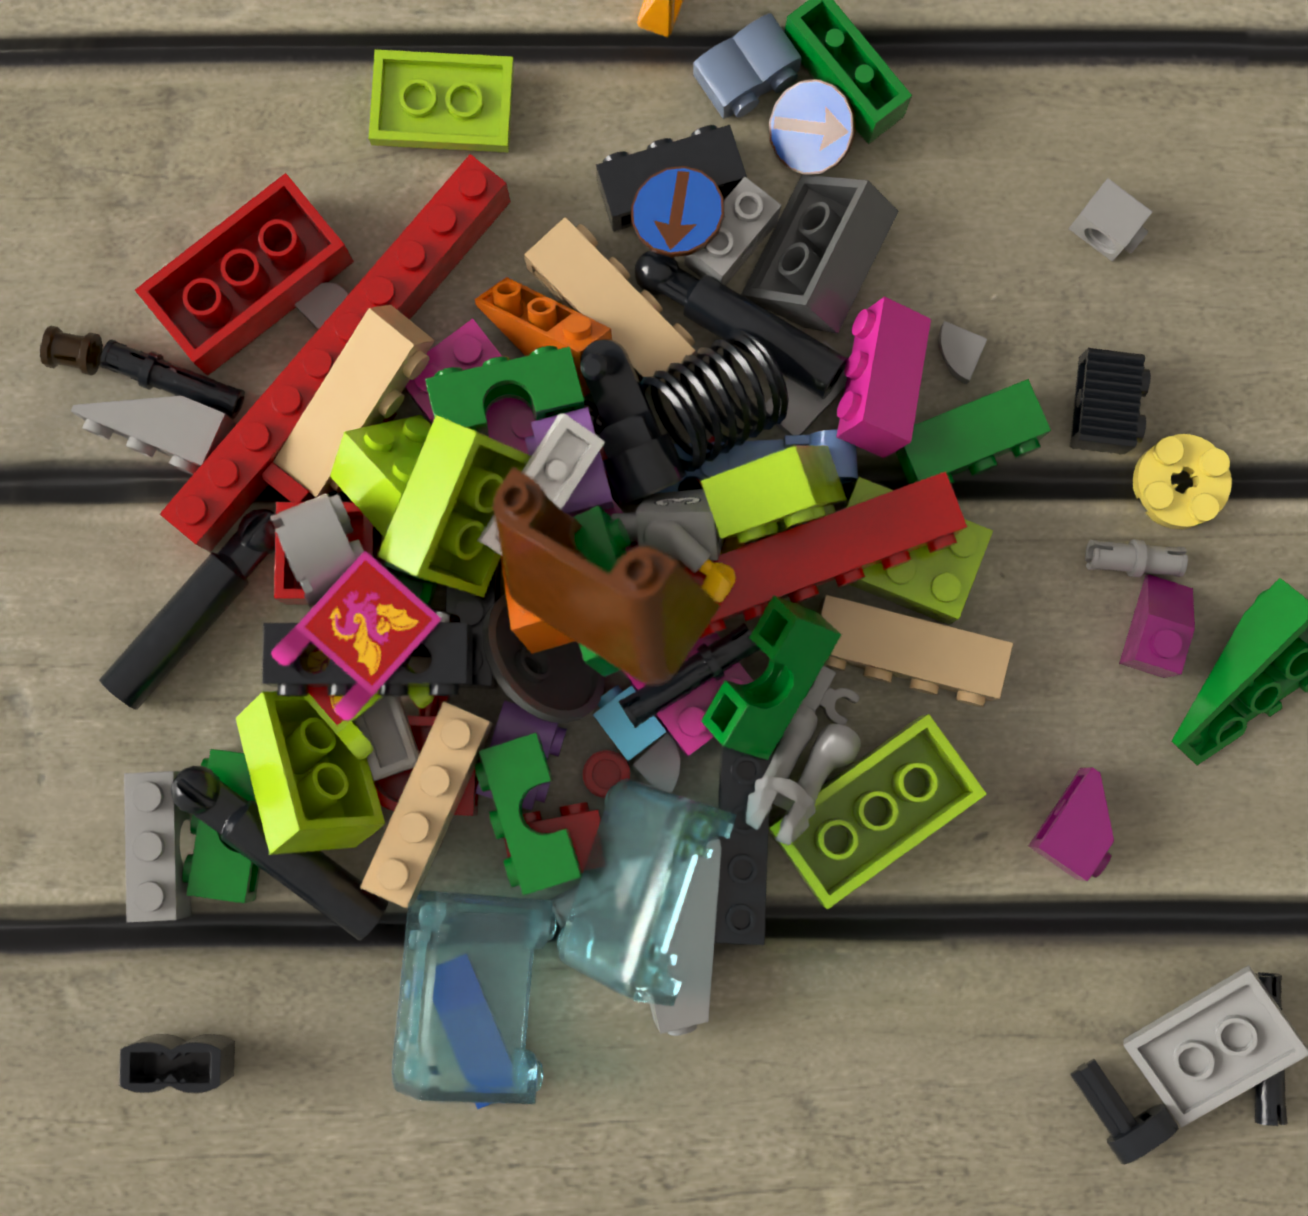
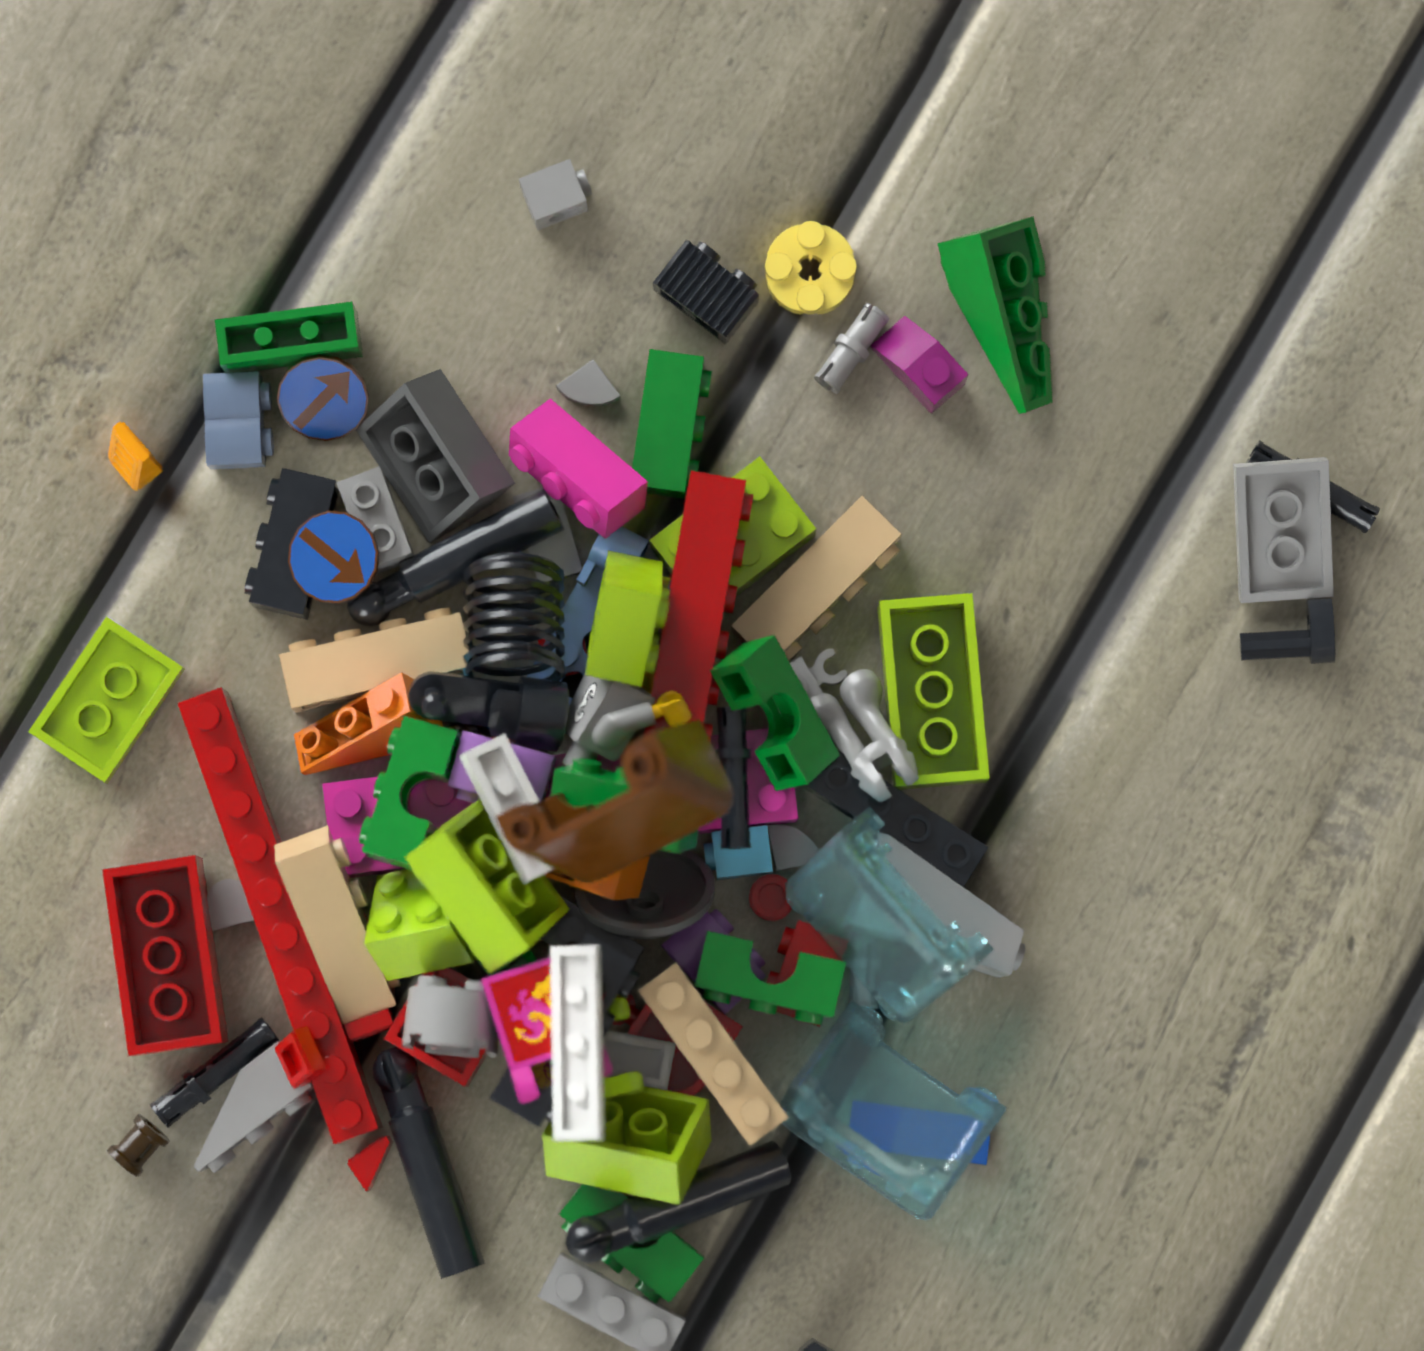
camera: 55 degrees left, 0 degrees up
(164, 556) = (369, 1161): none -> red slope
(216, 438) = (300, 1057): none -> red tile
(354, 673) = (577, 1043): none -> white tile
(1078, 828) = (1046, 533): magenta slope -> none

